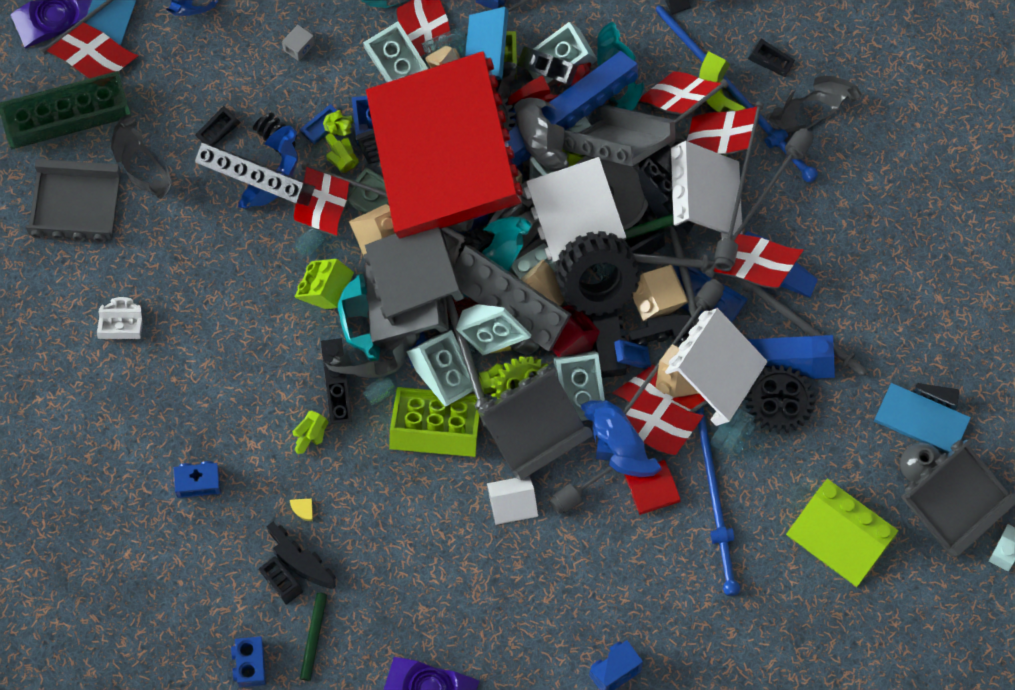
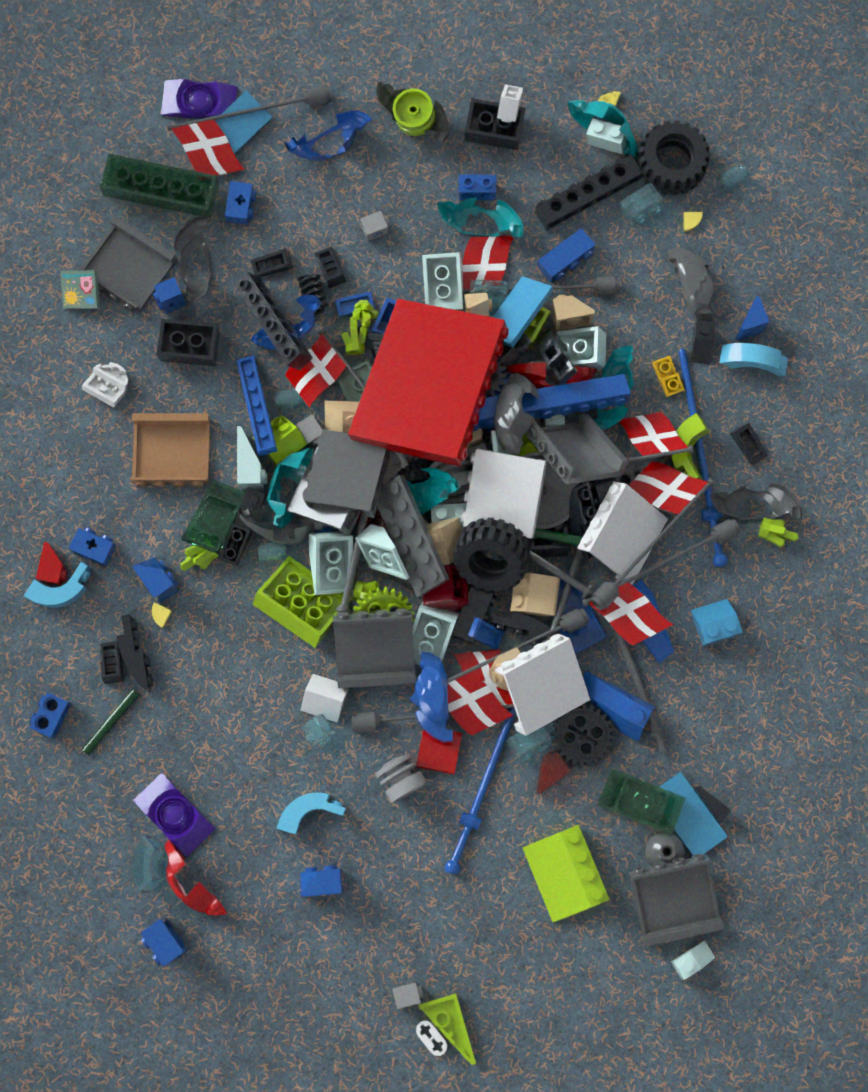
camera: 30 degrees right, 10 degrees up
(41, 245) = (80, 289): none -> sand green tile
(136, 204) = (169, 296): none -> blue brick
(154, 97) = (240, 213): none -> blue brick
(167, 521) = (51, 568): none -> red slope
(180, 239) = (188, 342): none -> black brick
(186, 548) = (61, 595): none -> medium azure arch
(220, 348) = (171, 449): none -> medium nougat panel
(281, 474) = (158, 582): none -> blue slope
(284, 261) = (256, 406): none -> blue tile
(286, 111) = (336, 277): none -> black slope
(303, 385) = (214, 517): none -> clear green slope
(309, 317) = (249, 469): none -> light aqua slope
(352, 258) = (310, 430): none -> light grey brick
(525, 531) = (318, 731): none -> clear light blue brick
(535, 24) = (570, 313): none -> tan slope
(553, 608) = (297, 809): none -> medium azure arch
(632, 529) = (400, 778): none -> light grey wheel
(658, 37) = (667, 376): none -> yellow slope
(770, 447) = (550, 771): none -> clear red slope
(841, 231) = (716, 622): none -> dark azure slope
(845, 122) = (776, 532): none -> lime rock
(872, 427) = (641, 801): none -> clear green slope

